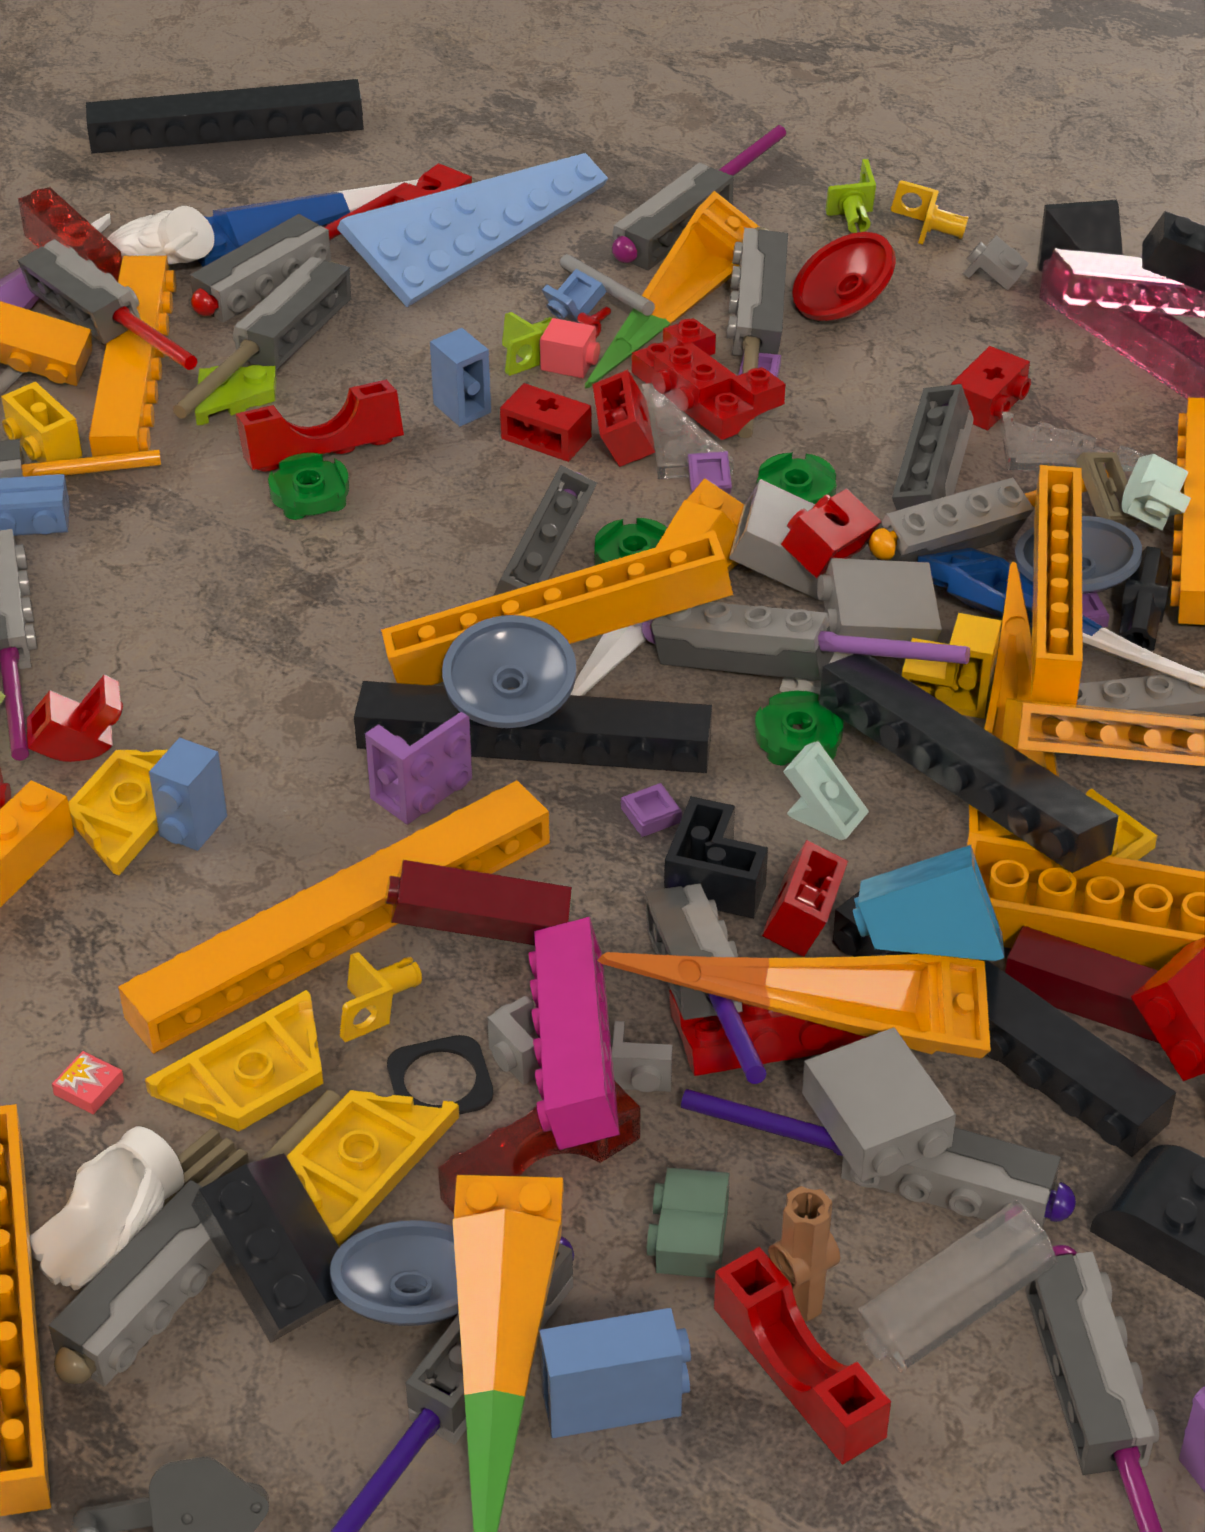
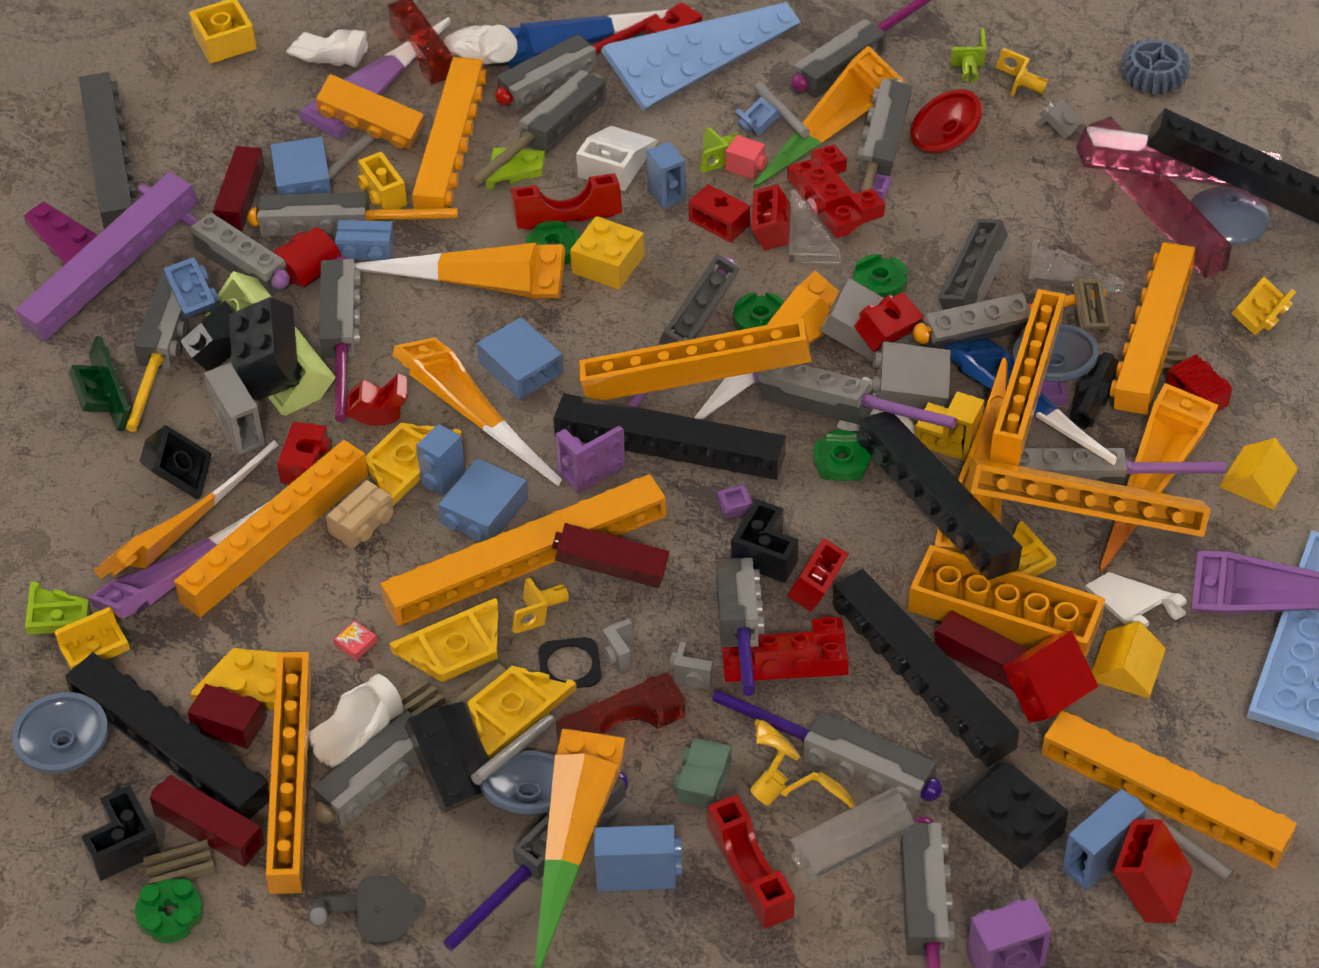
camera: 10 degrees right, 5 degrees up
(70, 890) = (360, 514): none -> tan brick
(92, 298) = (427, 90): piece -> none
(178, 679) = (445, 376): none -> light orange plate
(255, 523) = (513, 269): none -> light orange plate
(262, 849) = (483, 501): none -> medium blue brick
(286, 642) = (520, 358): none -> medium blue brick
(375, 356) = (613, 152): none -> white slope
(375, 1222) = (513, 749): none -> light grey bar
(392, 487) = (607, 252): none -> yellow brick
(506, 655) = (651, 388): sand blue dish -> none
(572, 1035) = (652, 647): dark pink brick -> none
(594, 319) = (765, 138): red hand -> none
(711, 466) = (823, 262): medium lavender tile -> none
(806, 1248) = (763, 800): medium nougat piece -> none
(808, 1150) = (773, 781): none -> yellow plant
(826, 796) = (847, 505): light aqua slope -> none
(878, 1104) = (829, 715): light grey brick -> none
(926, 997) = (857, 650): light orange plate -> none
(931, 909) = (889, 595): dark azure slope -> none
(994, 385) = (1030, 217): red brick -> none
(1080, 227) = (1124, 103): black slope -> none
(1111, 179) = (1155, 66): none -> sand blue gear
(1155, 491) = (1119, 312): light aqua brick -> none

